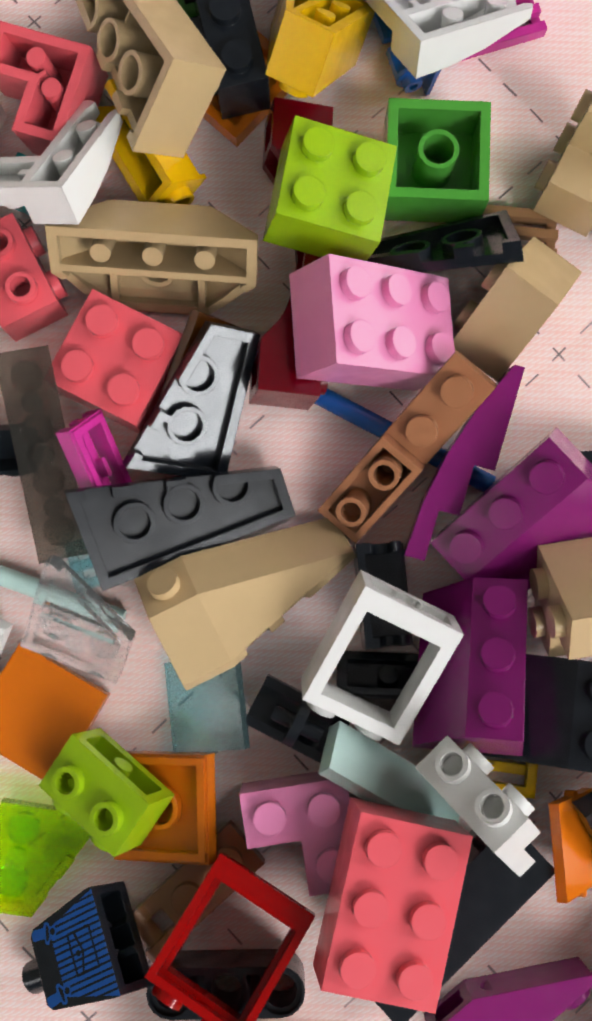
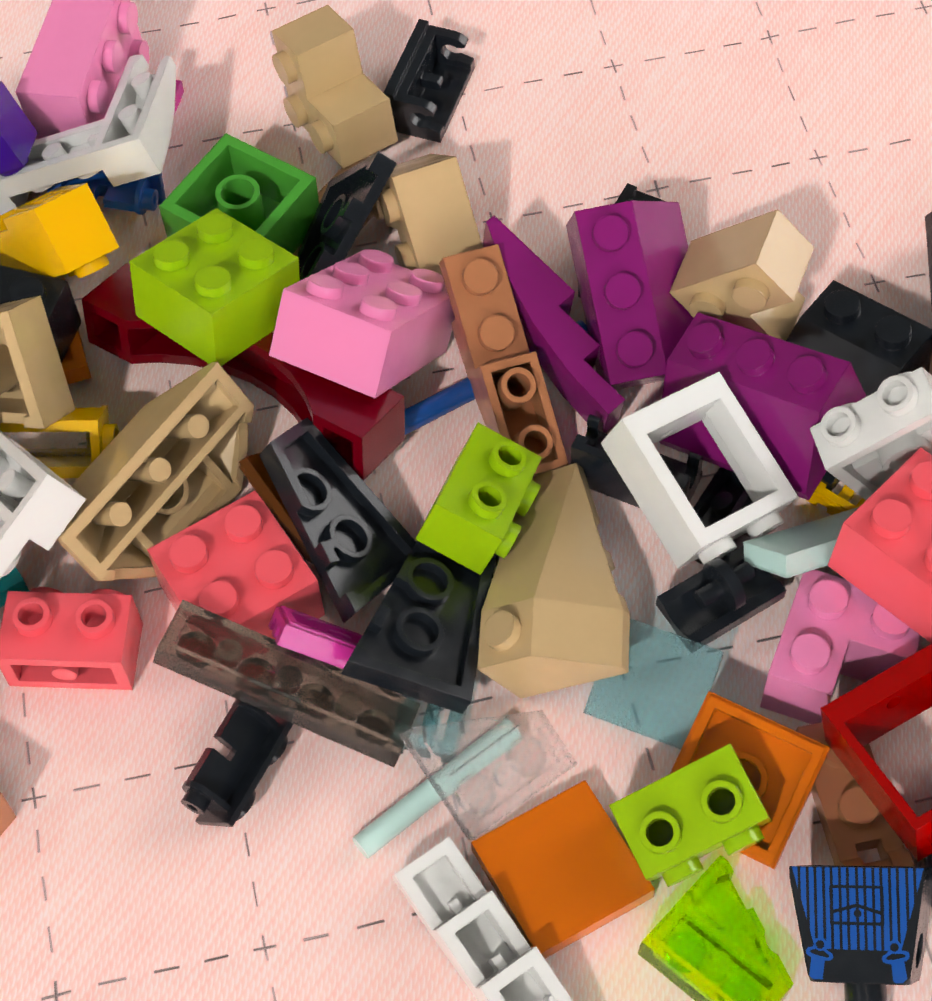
camera: 55 degrees left, 25 degrees down
(271, 504) = (480, 500): none -> lime brick

